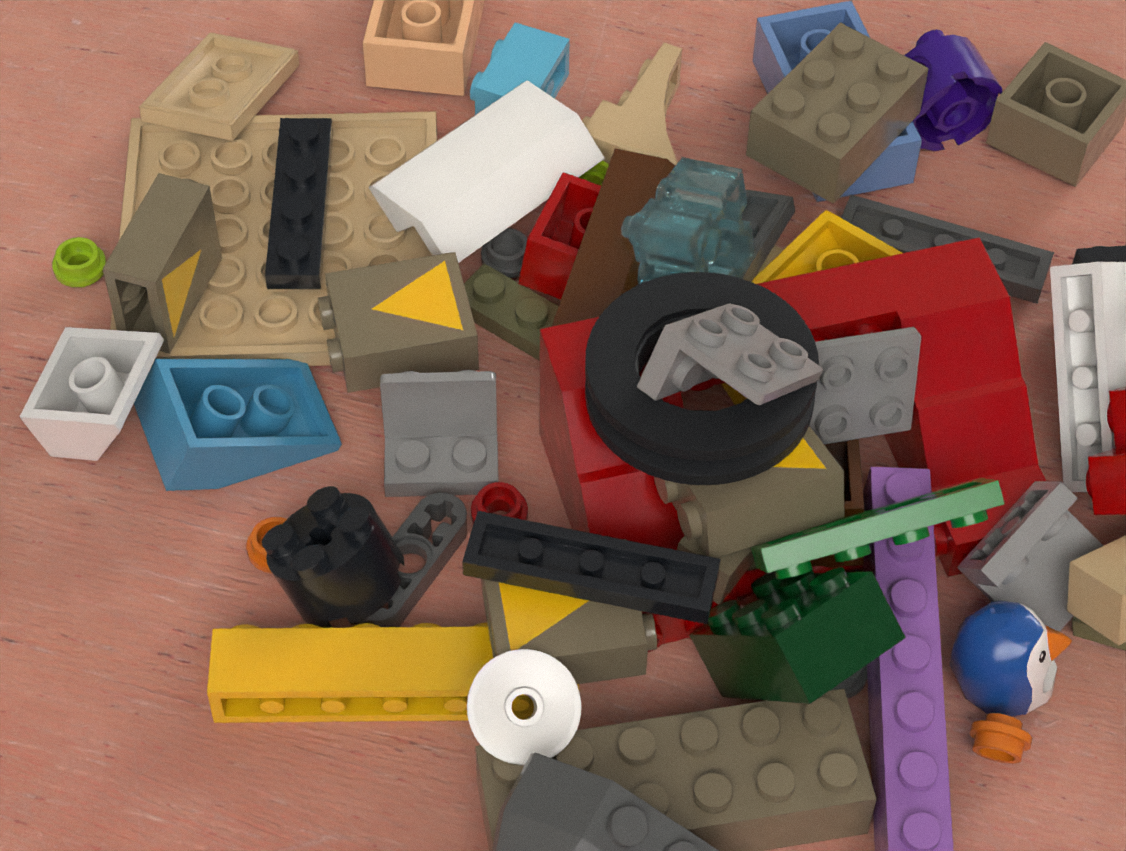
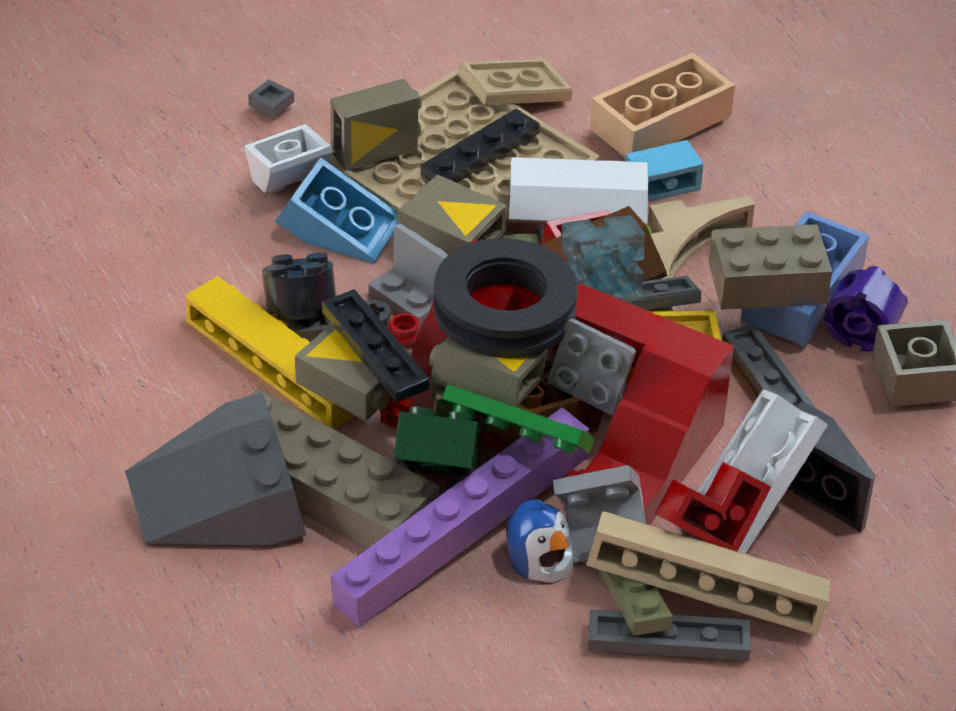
camera: 45 degrees right, 10 degrees down
(554, 699) = (278, 370): white piece -> none
(730, 347) = (507, 282): light grey bracket -> none
(1000, 738) = (494, 570): orange plate -> none

